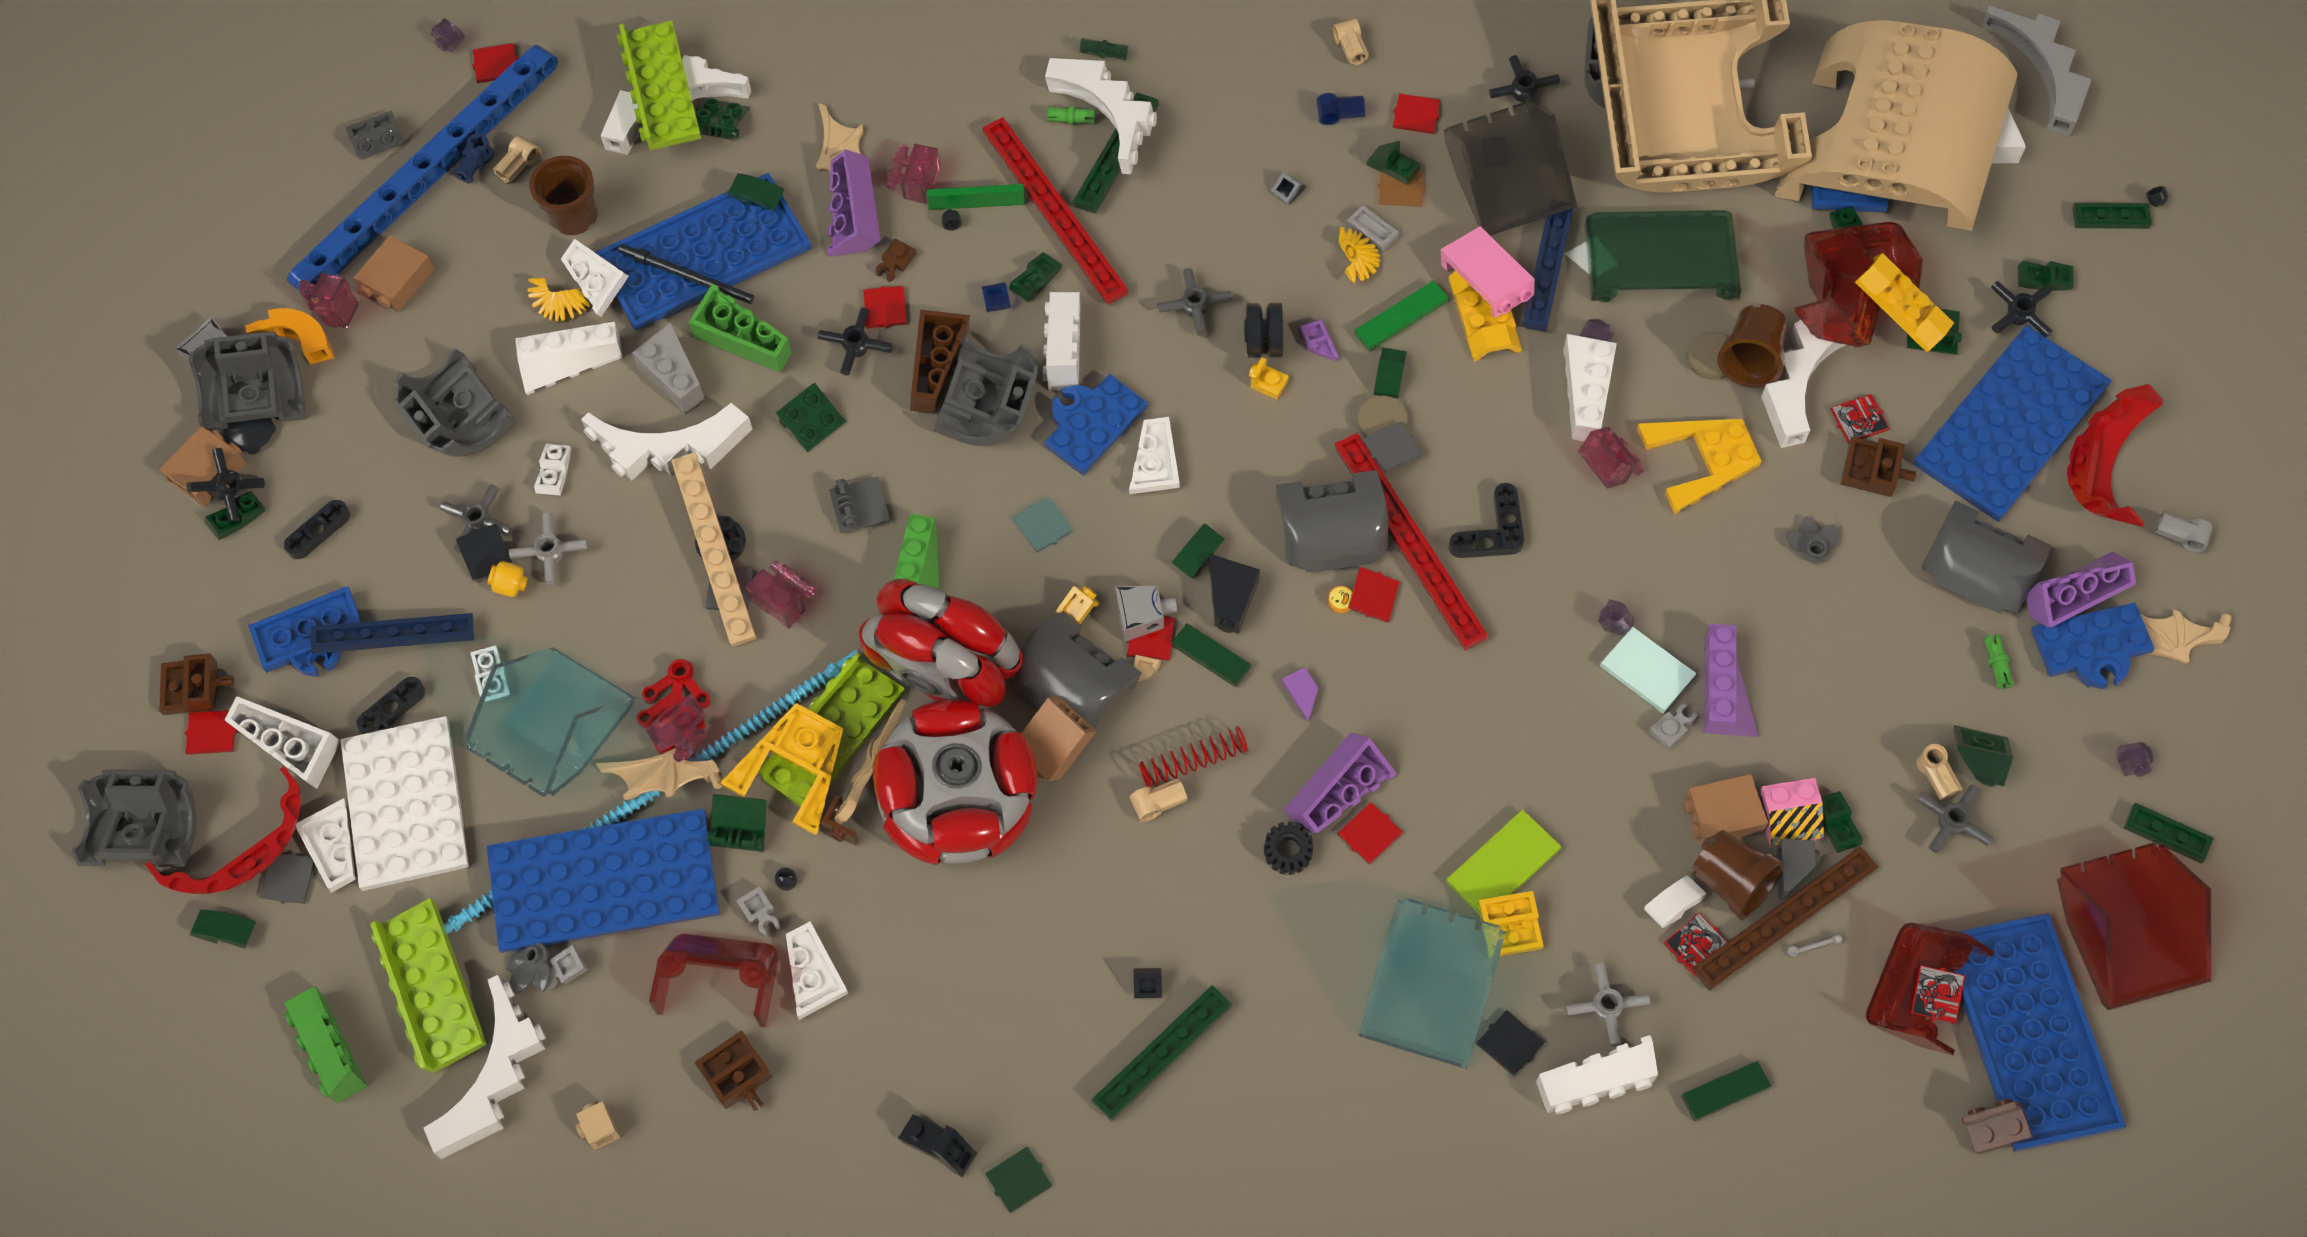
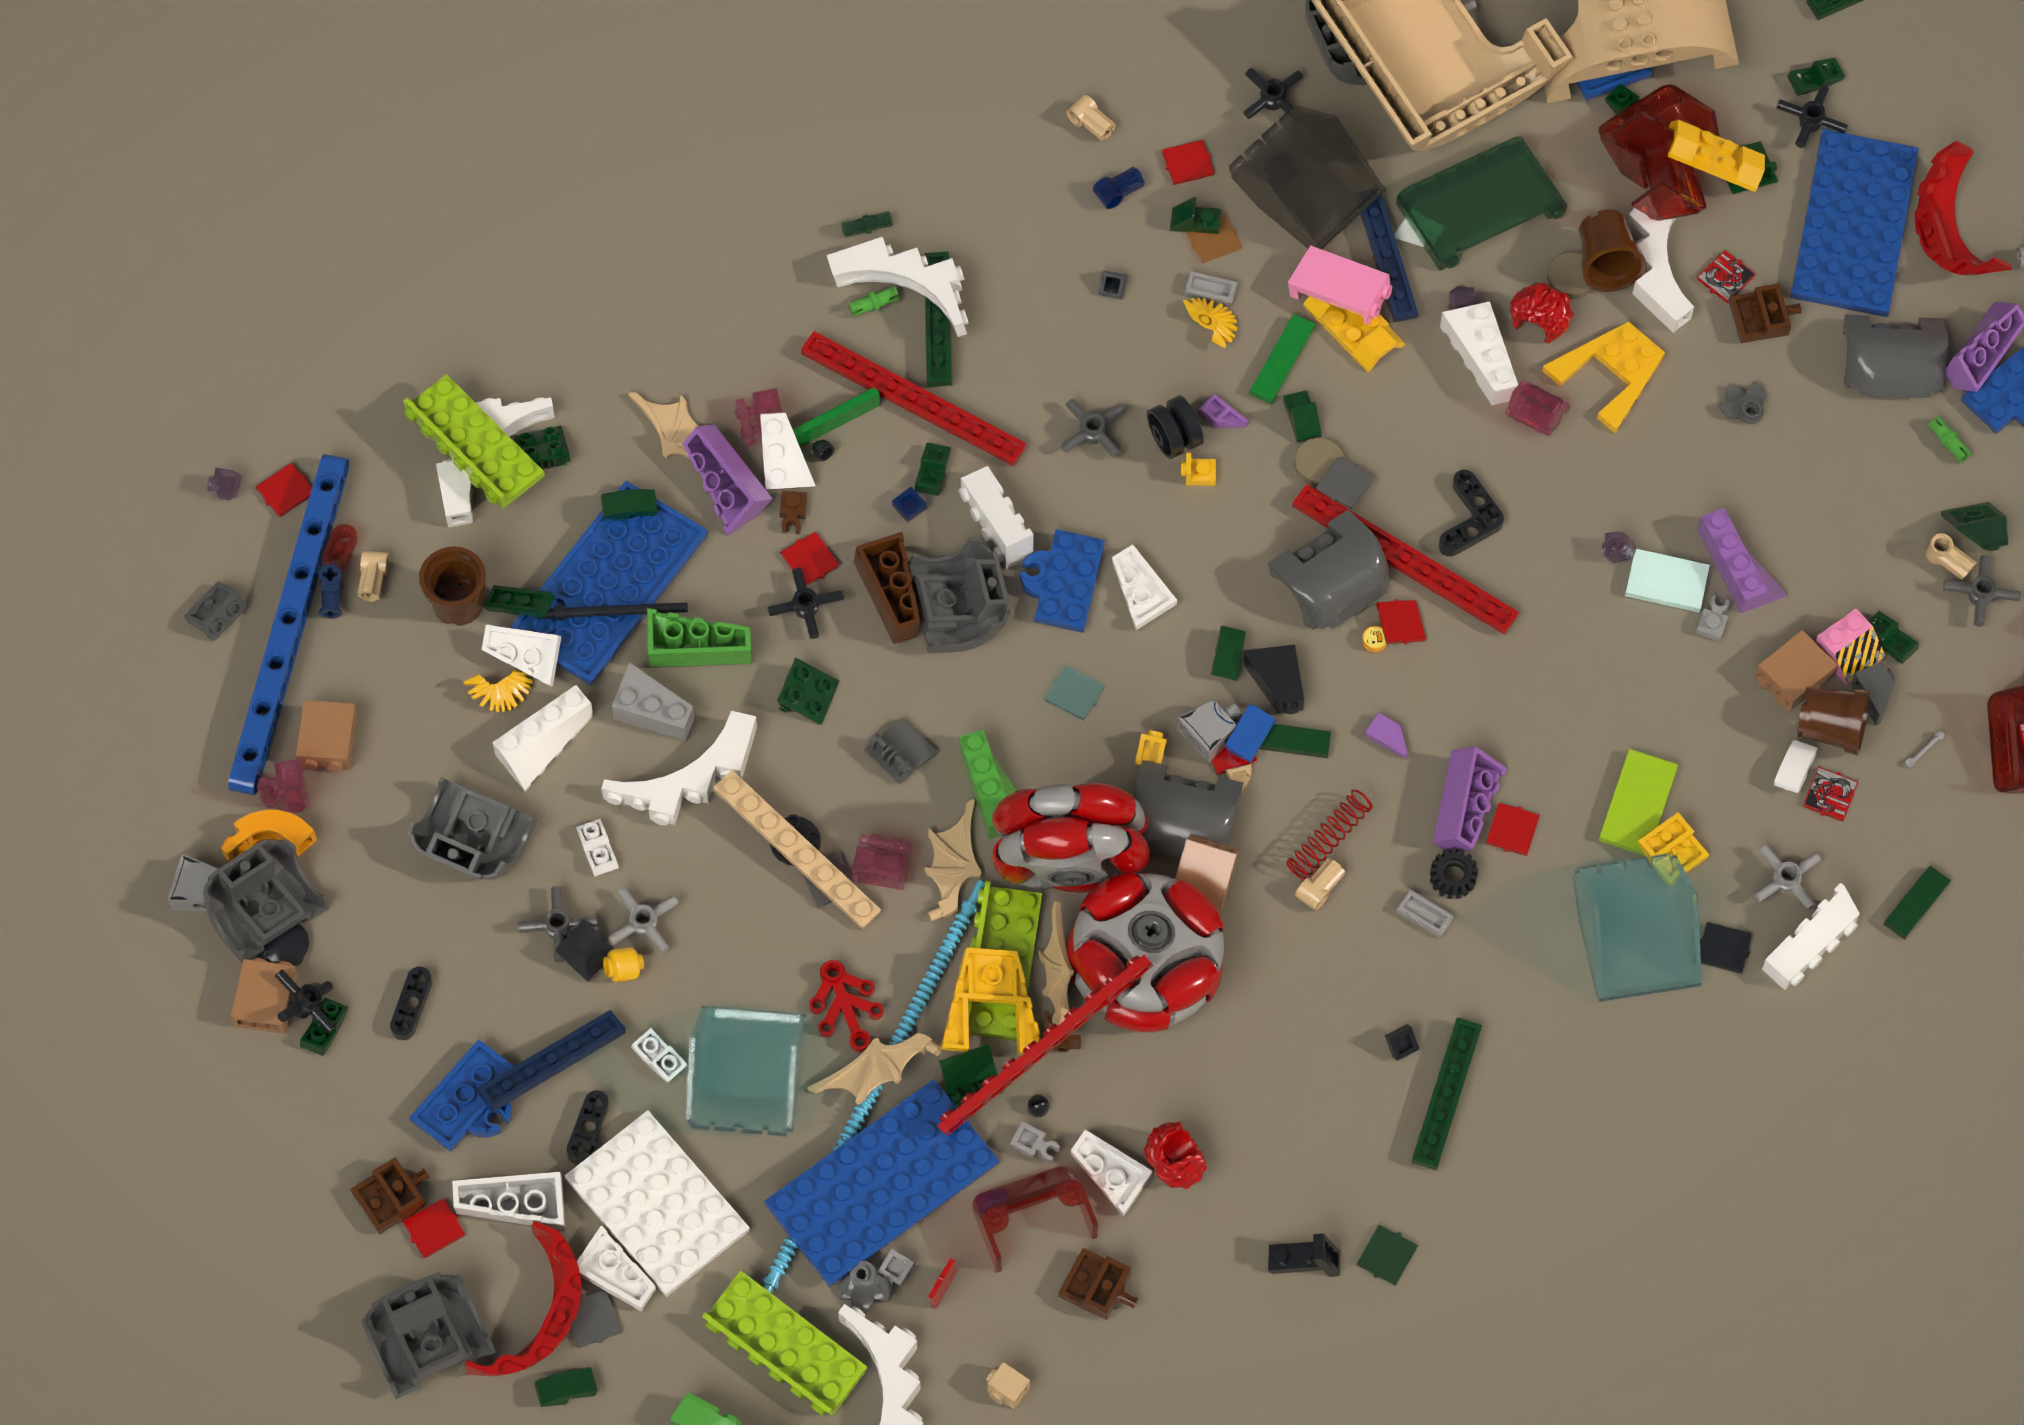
camera: 30 degrees left, 0 degrees up
(503, 126) = (340, 550): none -> clear red plate
(594, 999) = (942, 1283): none -> red piece
(615, 232) = (519, 601): none -> dark green tile
(678, 728) = (869, 1018): clear pink brick -> none
(813, 820) = (1036, 1051): none -> red plate
(840, 626) = (952, 863): none -> tan animal
(870, 986) = (1175, 1156): none -> red hair
(909, 206) = (782, 455): none -> white wing
(1173, 630) = (1249, 733): none -> blue slope
(1241, 873) = (1424, 914): none -> light grey tile
(1665, 370) = (1544, 307): none -> red hair
(1784, 918) = (1889, 738): reddish brown tile -> none

